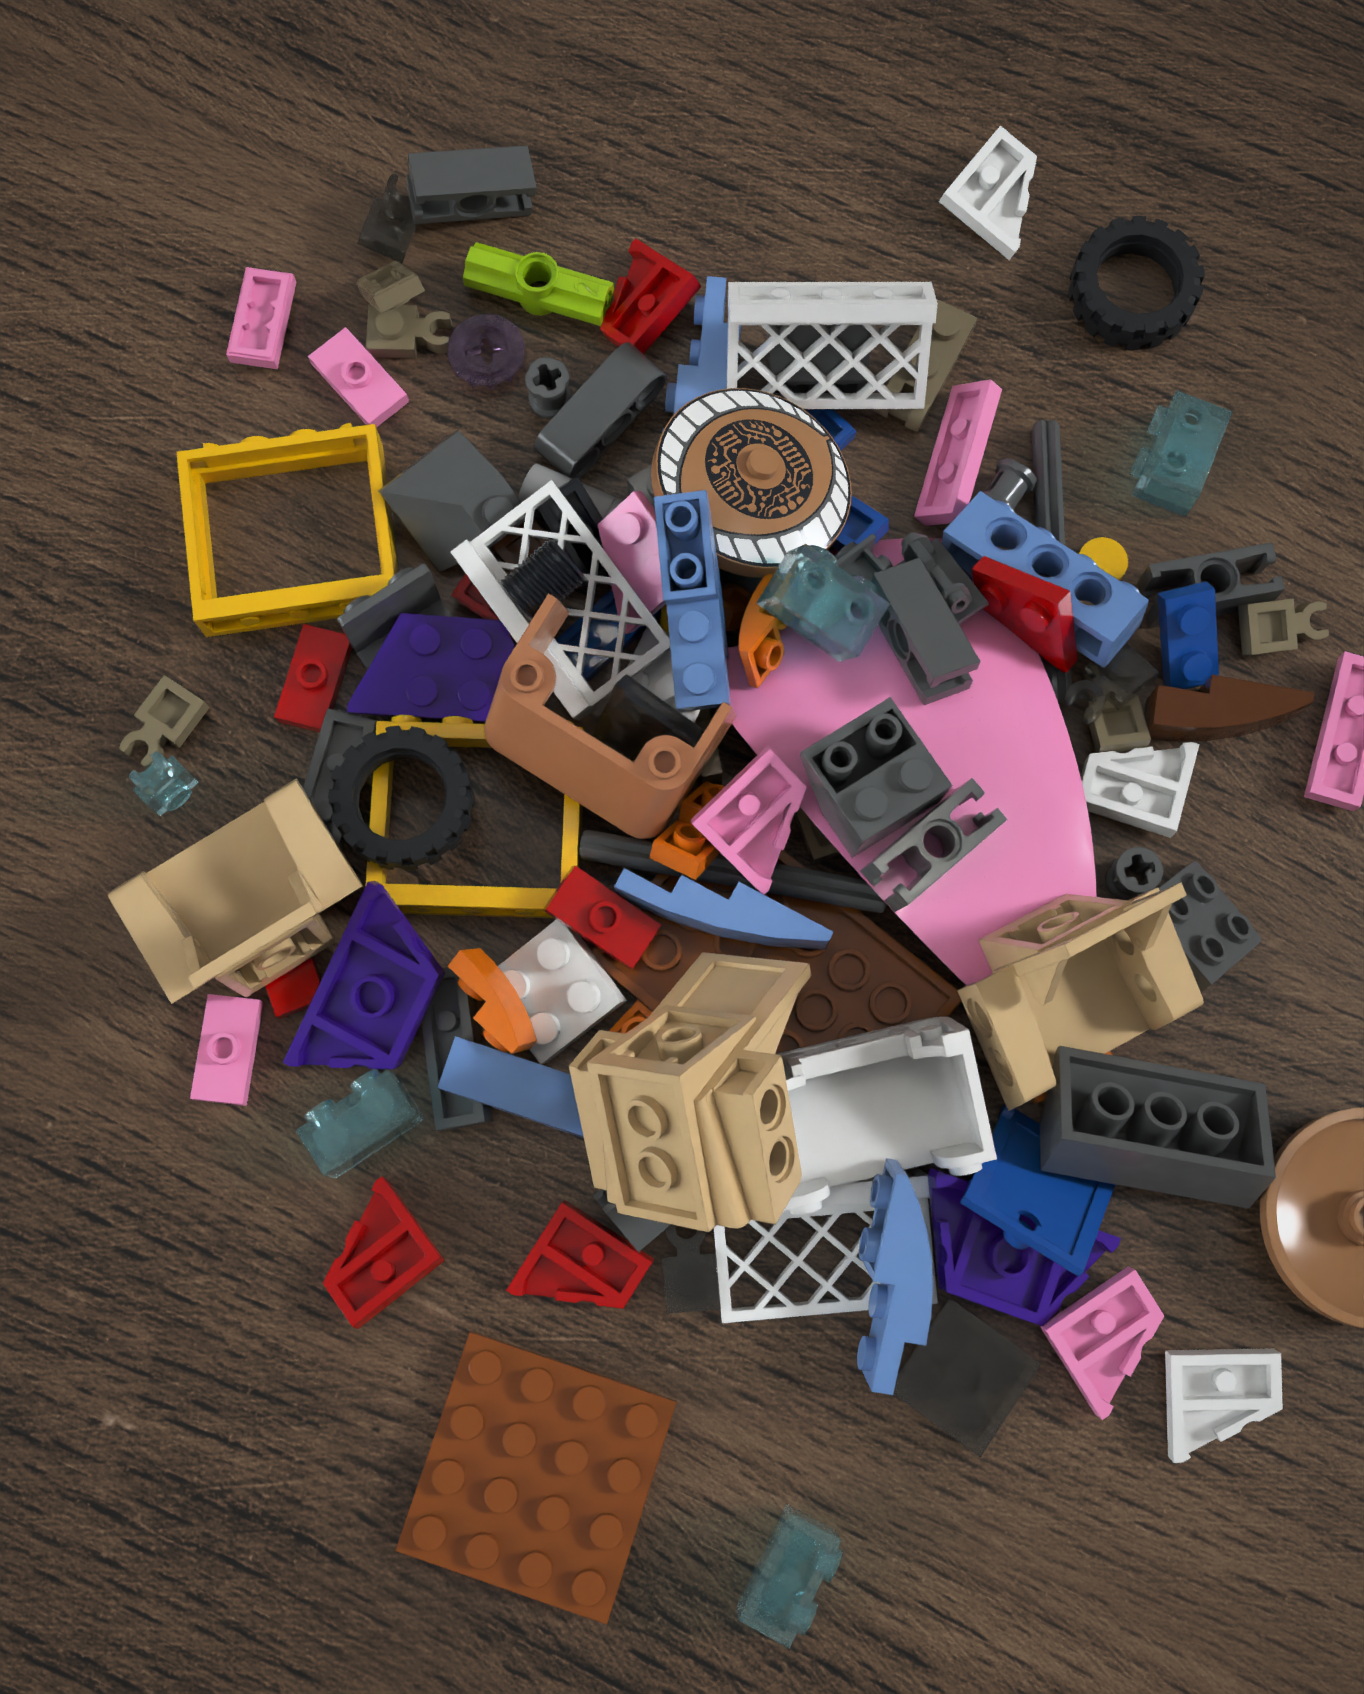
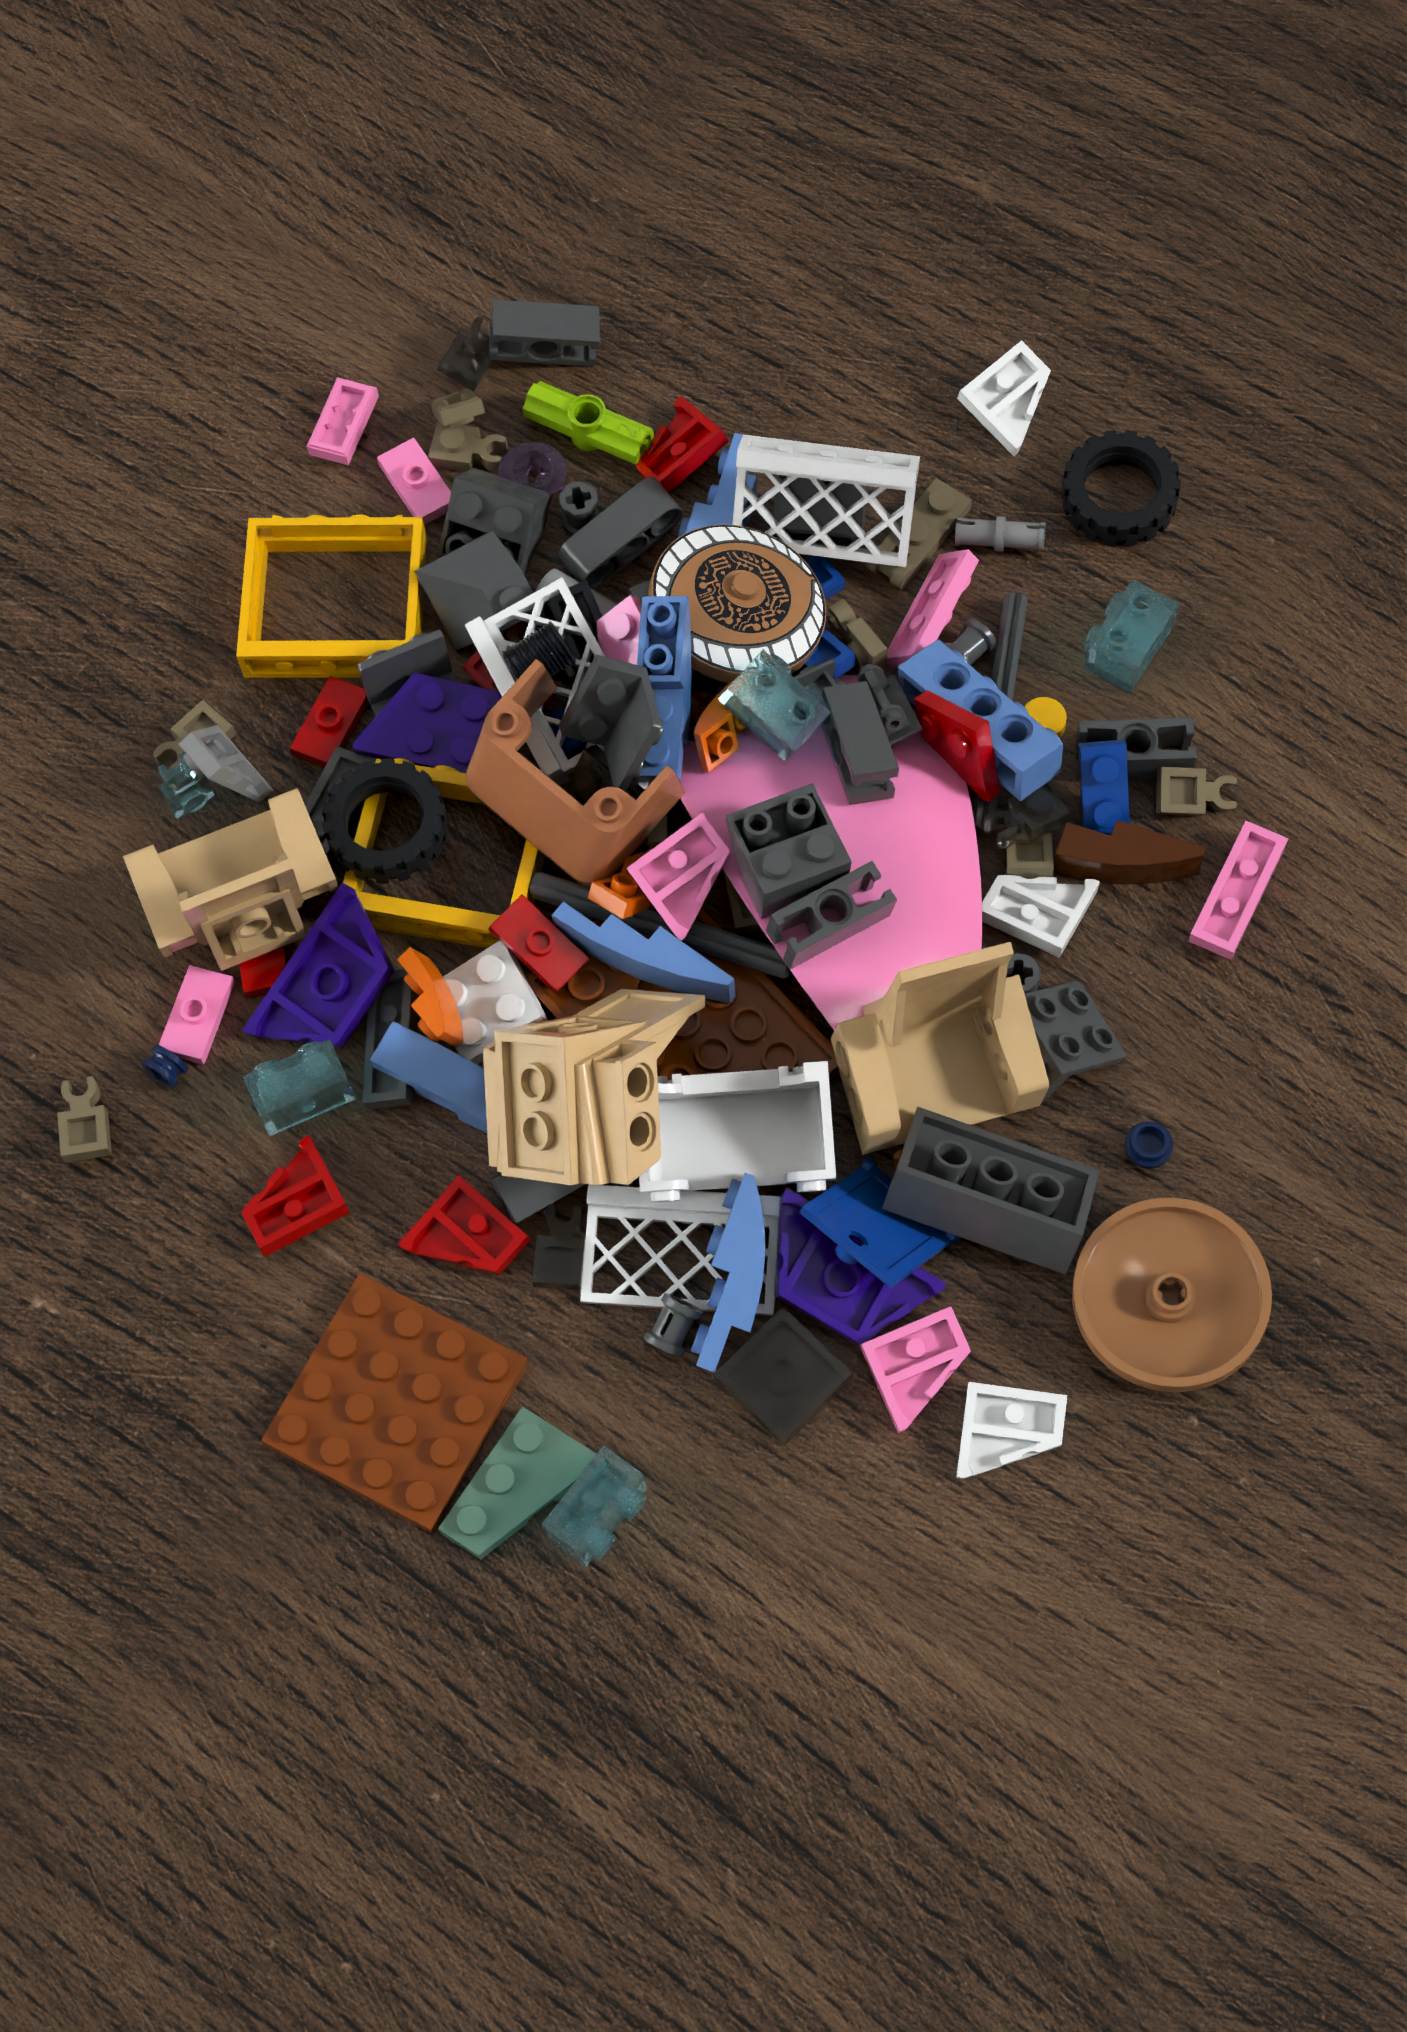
camera: 15 degrees right, 10 degrees down
(125, 1208) = (84, 1128): none -> dark tan plate
(202, 753) = (218, 758): none -> light grey wing
(202, 1120) = (164, 1066): none -> dark blue bush
(454, 397) = (489, 503): none -> dark grey slope
(656, 639) = (618, 712): none -> dark grey bracket
(691, 1548) = (516, 1481): none -> sand green wing
(829, 1358) = (673, 1325): none -> dark grey bush
(886, 497) = (858, 636): none -> dark tan plate
(1016, 353) = (1000, 533): none -> light grey pin
(1306, 1040) = (1148, 1145): none -> dark blue plate

